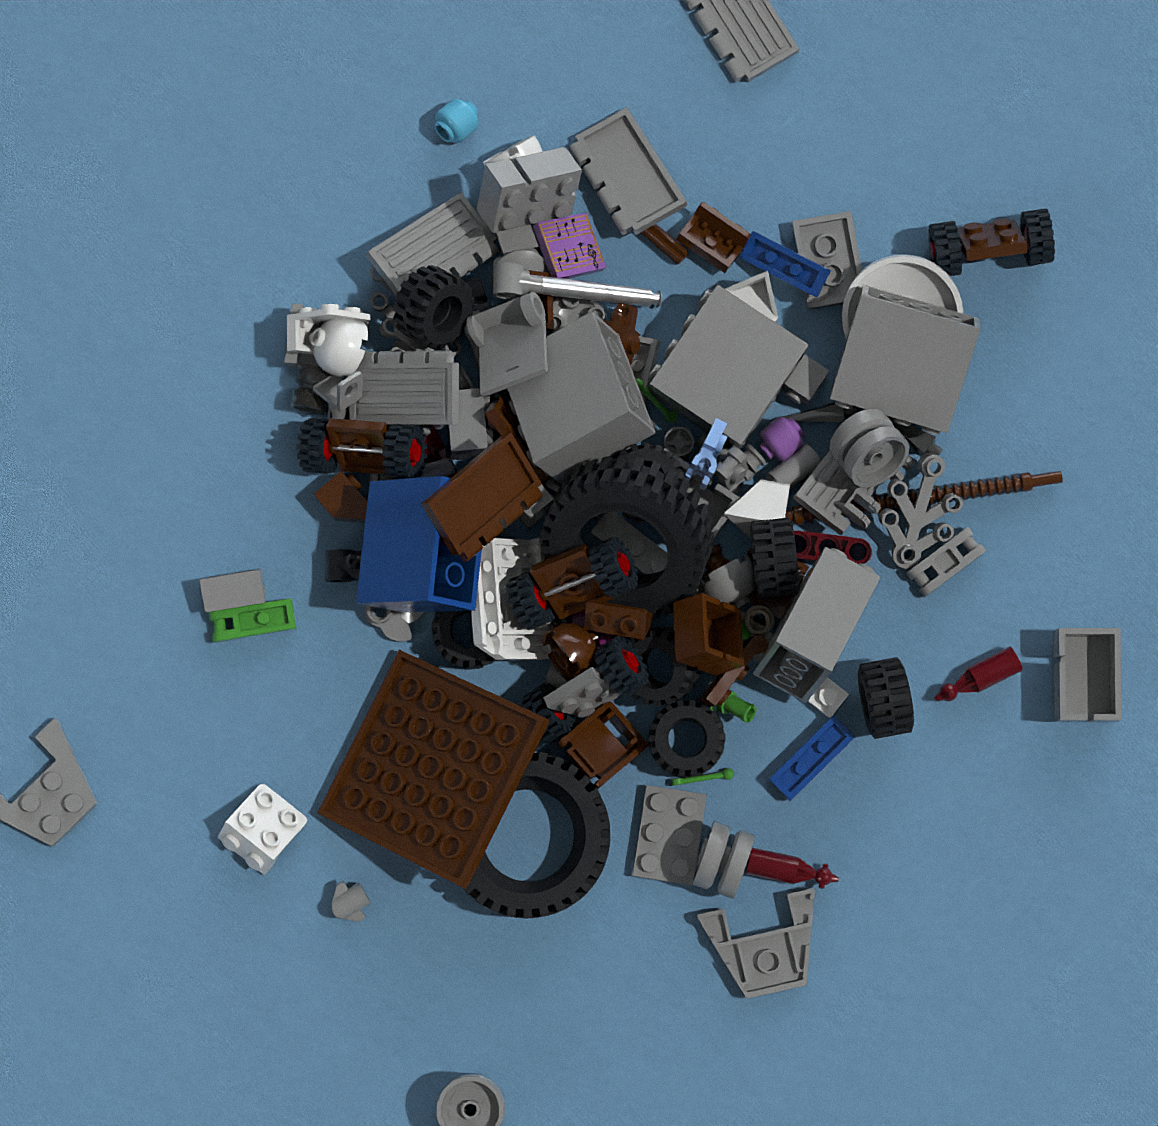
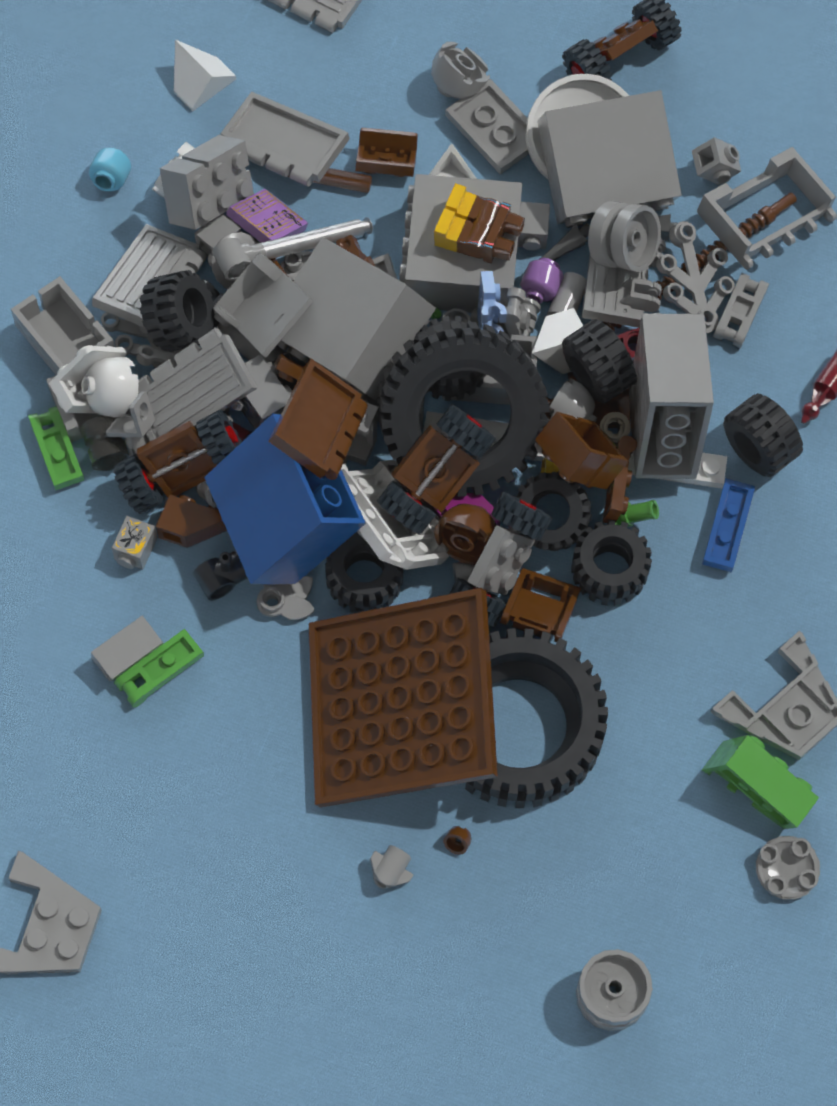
camera: 35 degrees left, 15 degrees down
(262, 828) = (270, 847): white bracket -> none
(269, 370) = (56, 449): none -> bright green plate
(289, 496) = (134, 543): none -> light grey brick
(330, 262) = (61, 326): none -> light grey piece
(418, 908) = (451, 843): none -> reddish brown hinge
(588, 64) = (198, 75): none -> white slope
(617, 619) = (493, 478): reddish brown bracket -> none
(669, 835) = (645, 657): light grey plate -> none
(679, 1085) = (788, 867): none -> light grey dish
(700, 1001) = (763, 780): none -> bright green wedge
(723, 859) = (708, 644): light grey wheel -> none
(727, 774) = (663, 578): bright green hinge -> none
(745, 379) = (477, 226): none -> reddish brown hips
(785, 264) = (468, 141): blue plate -> none
(786, 868) = (763, 628): dark red wheel -> none
(825, 190) = (458, 71): none -> light grey cylinder
(1008, 407) = (716, 161): none -> light grey brick
(1074, 441) = (783, 164): none -> light grey hinge

